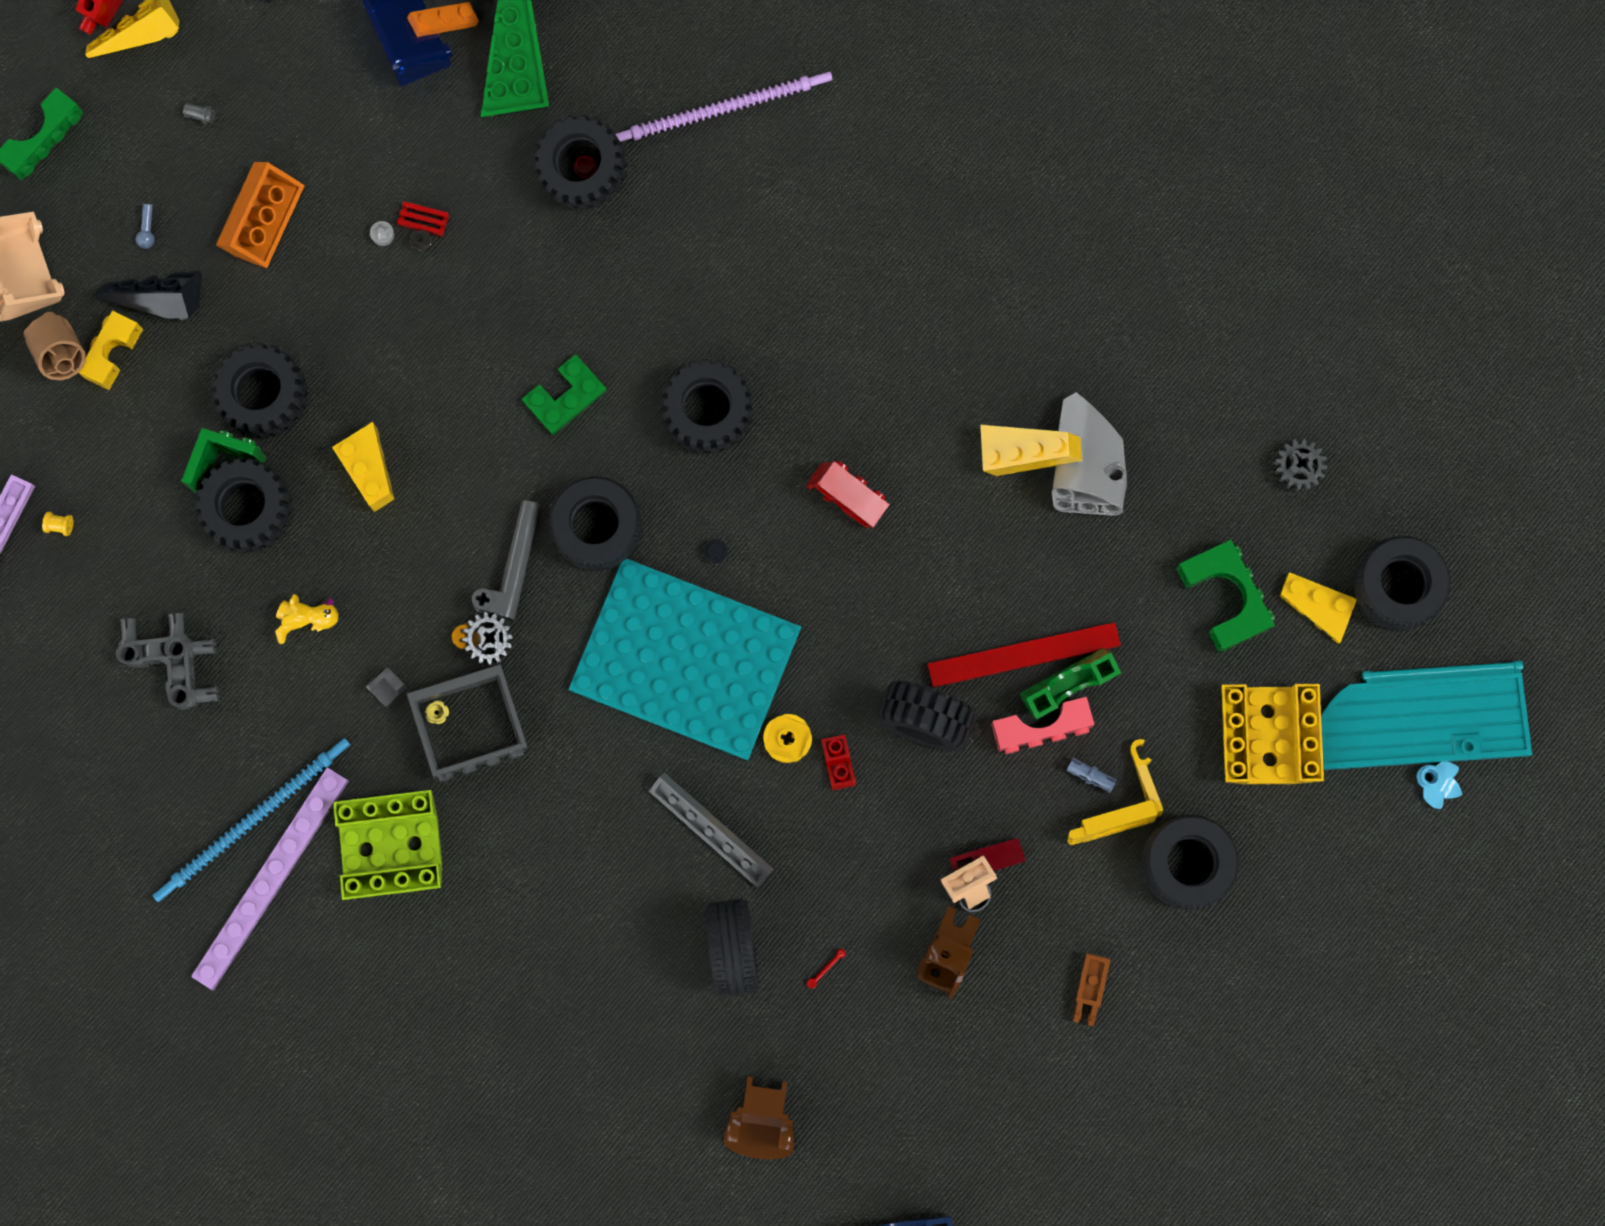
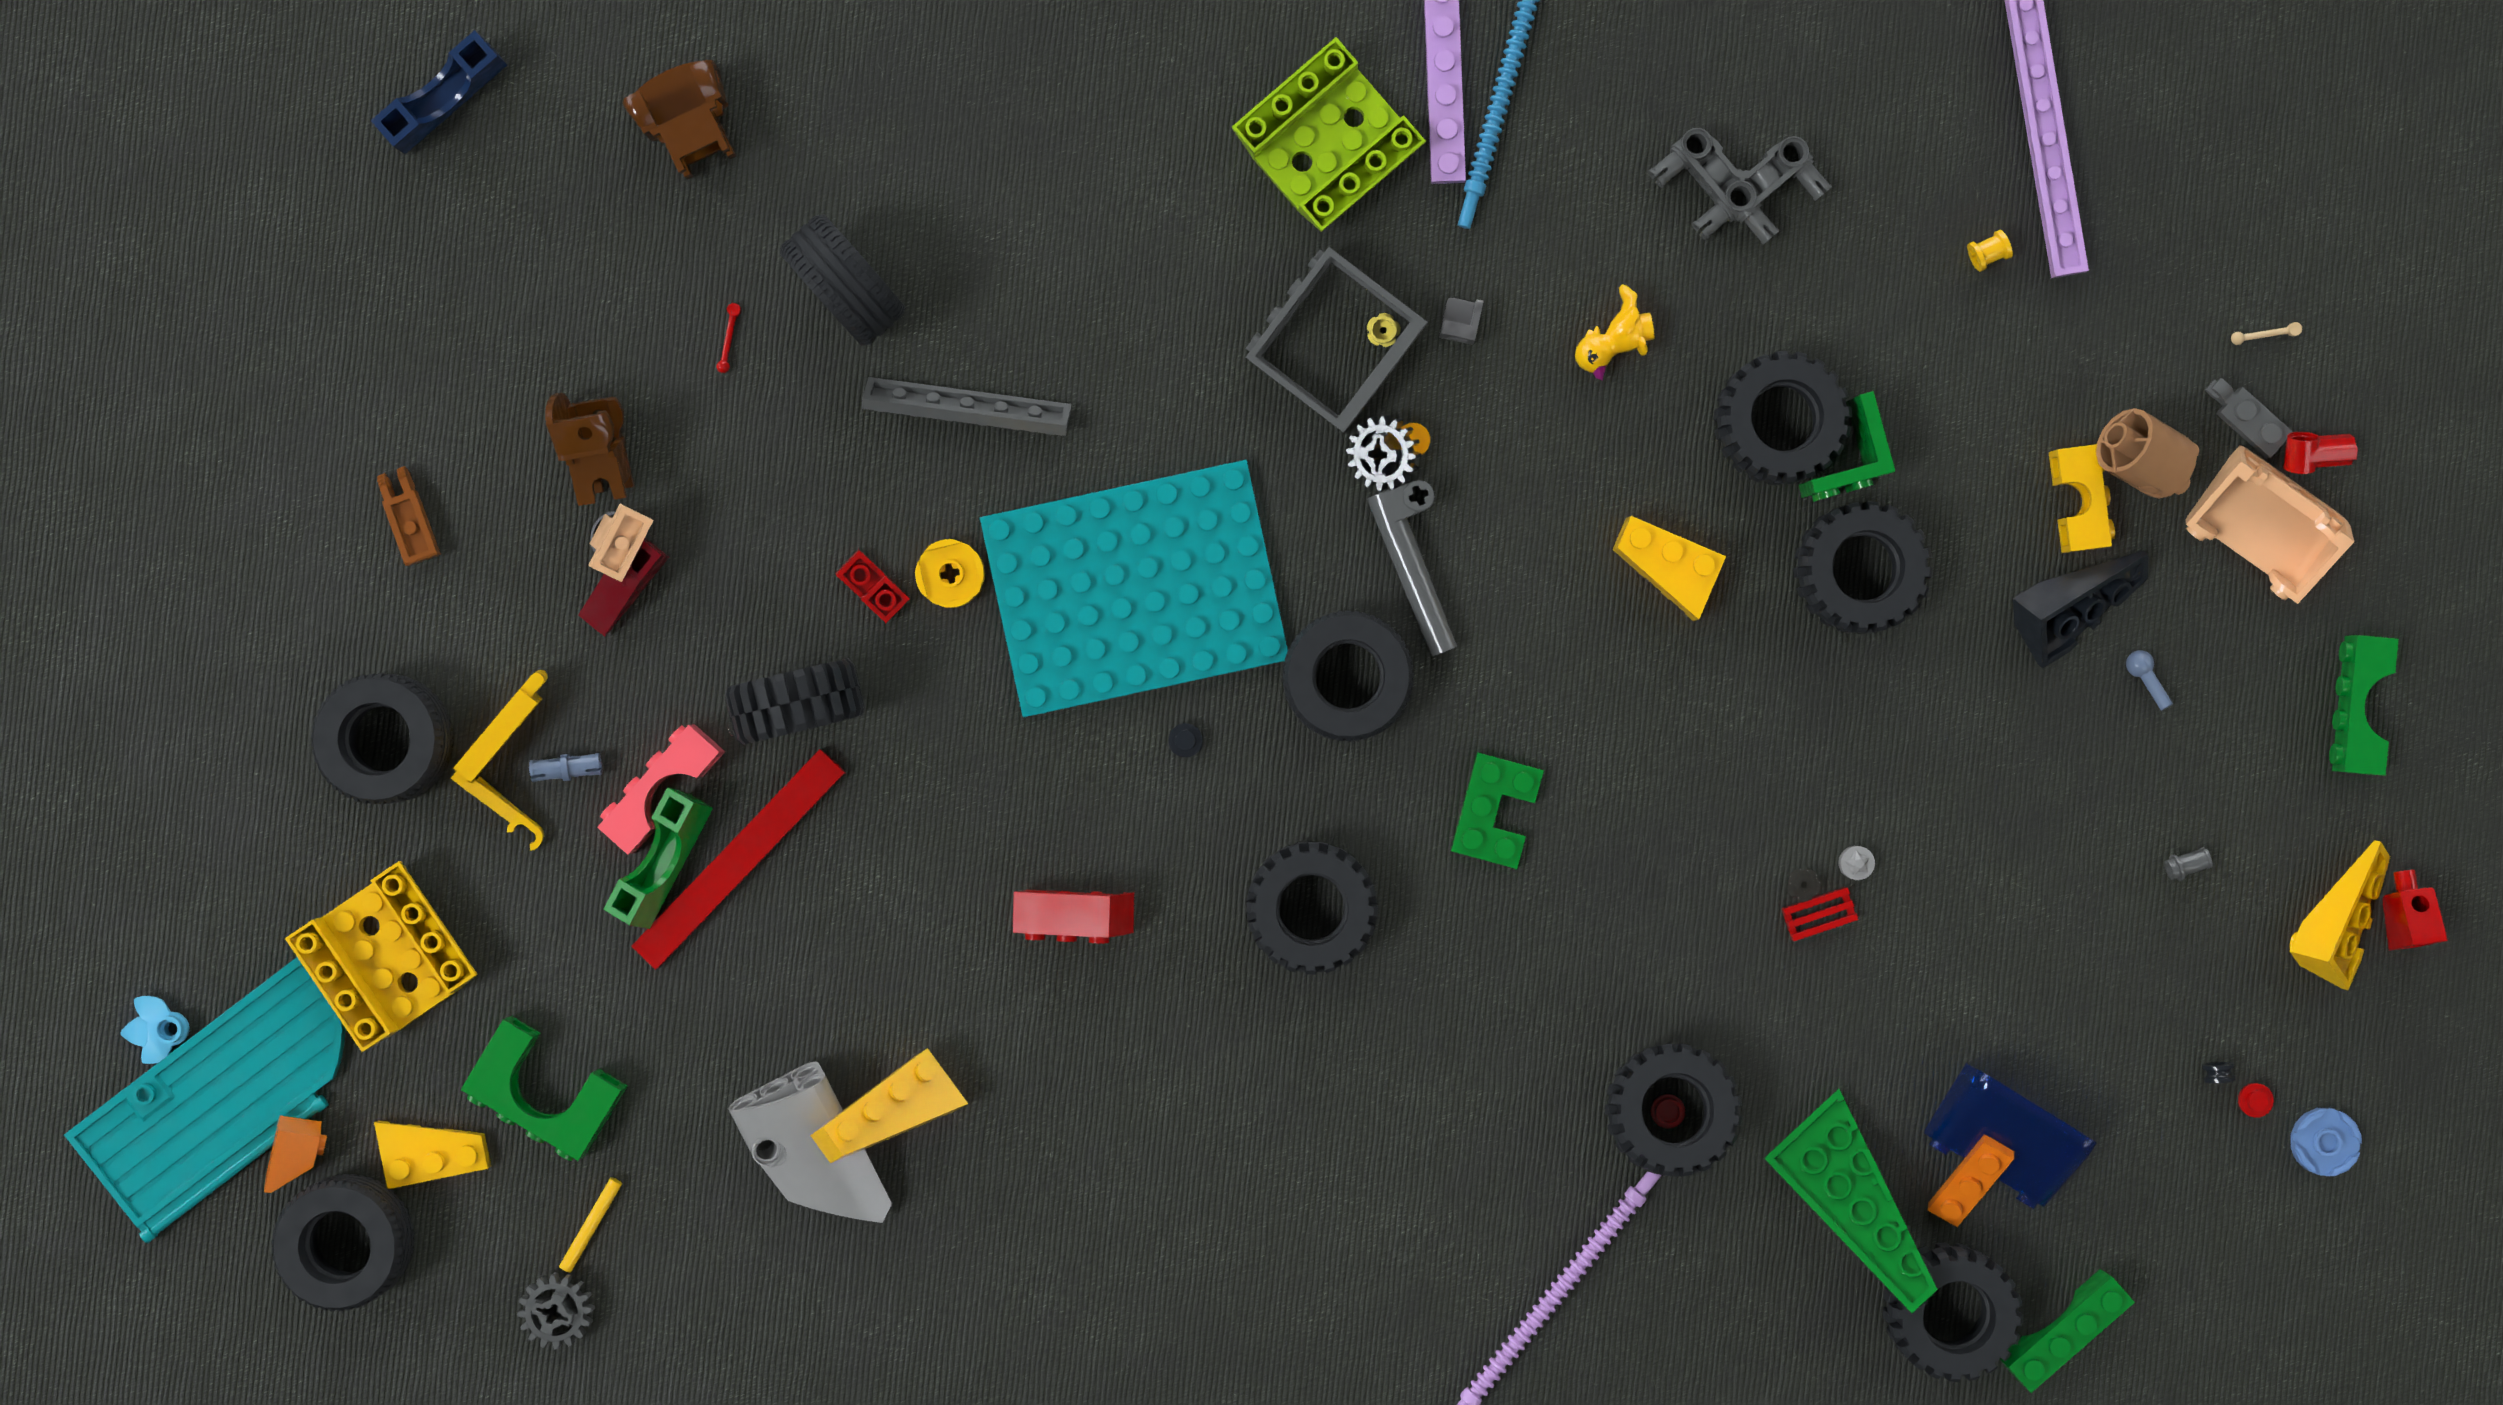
camera: 145 degrees right, 10 degrees up
(260, 214) = (2020, 786): orange slope -> none
(1248, 502) = (590, 1224): none -> yellow bar
(1399, 655) = (293, 1150): none -> orange slope

